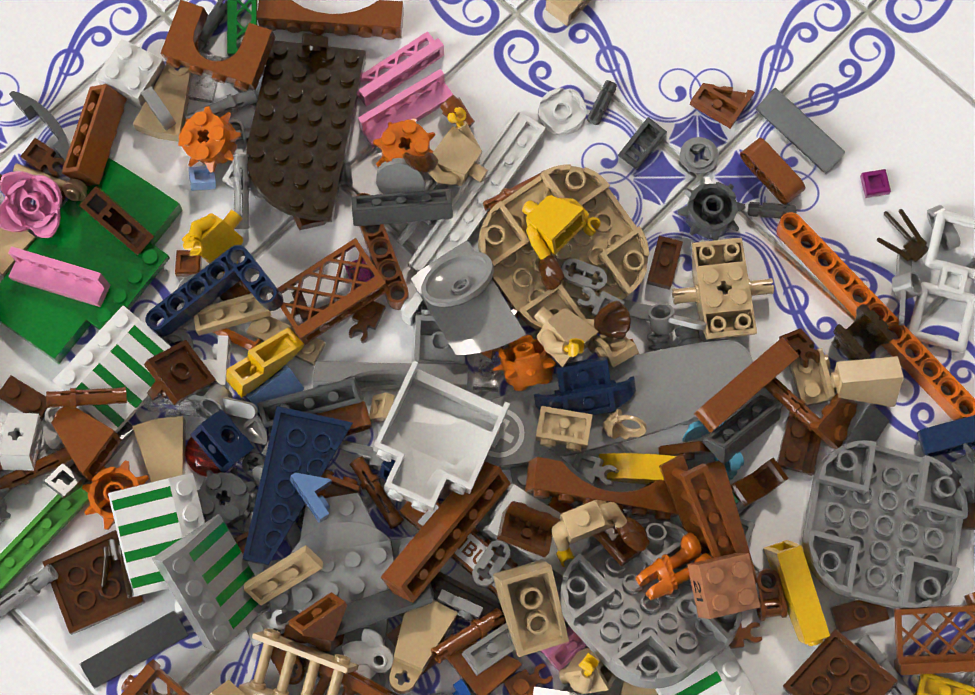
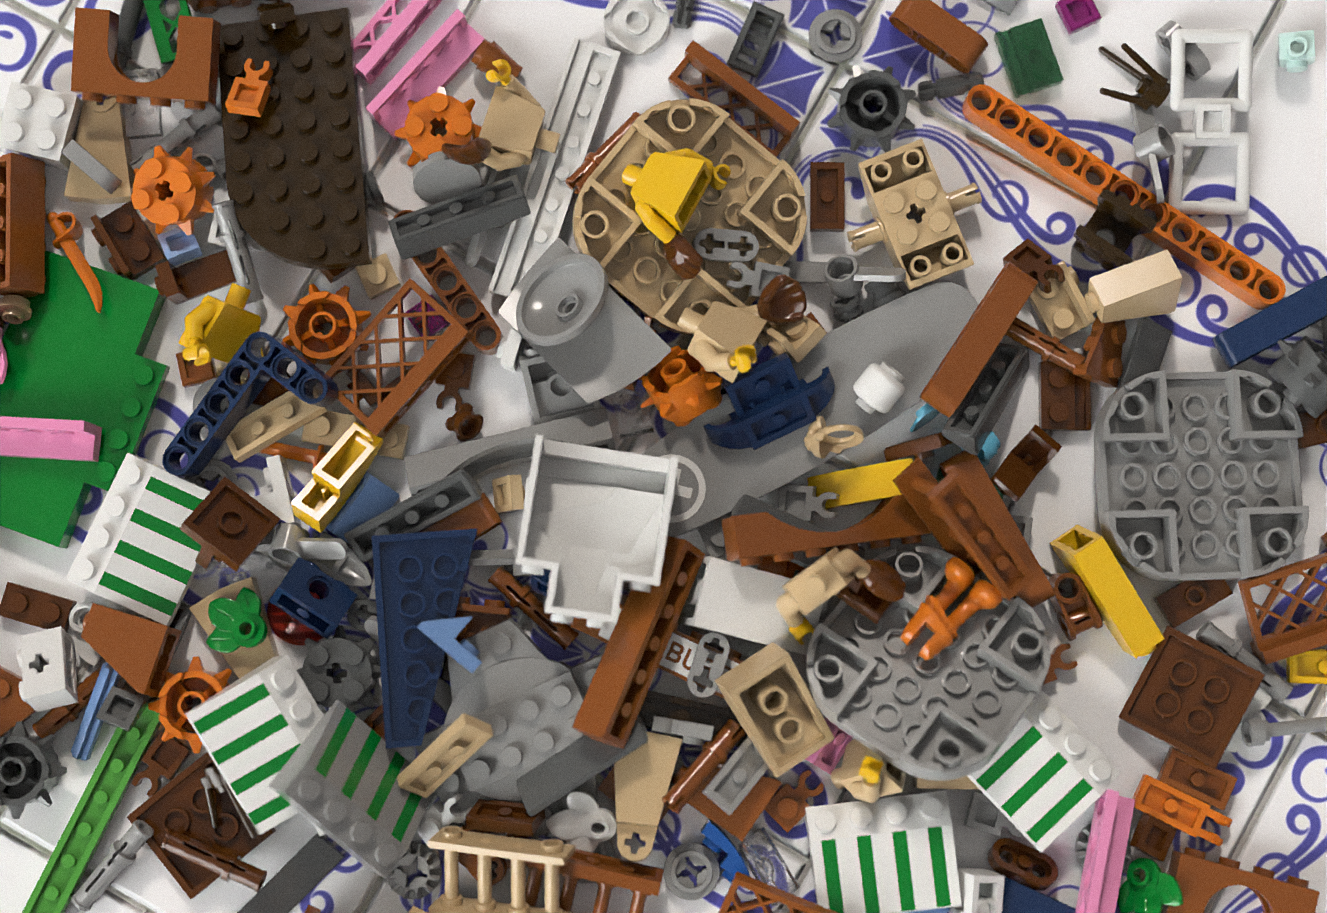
camera: 10 degrees left, 10 degrees up
(39, 488) = (90, 725): none -> medium blue axle
(81, 529) = (163, 760): none -> reddish brown plate
(86, 397) = (103, 596): dark orange pin -> none
(103, 615) = (214, 860): none -> reddish brown pin
(116, 220) = (82, 338): reddish brown slope -> none
(125, 154) = (67, 240): none -> orange sword
(160, 441) = (233, 618): none -> green plate
(168, 166) = (128, 240): none -> reddish brown bracket
(203, 203) = (194, 277): none -> reddish brown bracket
(237, 671) = (422, 885): none -> light grey gear
(282, 87) = (250, 93): none -> orange plate
(283, 245) = (308, 320): none -> orange brick
(321, 618) = (509, 801): dark orange slope -> none
(333, 235) = (378, 277): none -> tan plate
(368, 355) = (470, 428): none -> reddish brown plate
(527, 528) = (743, 611): reddish brown bracket -> none
(563, 428) = (755, 462): tan bracket -> none
(622, 174) = (739, 89): none -> dark orange fence
(666, 400) = (879, 388): none -> white head
(723, 585) = (1018, 621): nougat brick -> none
(832, 205) = (1028, 58): none -> clear green plate

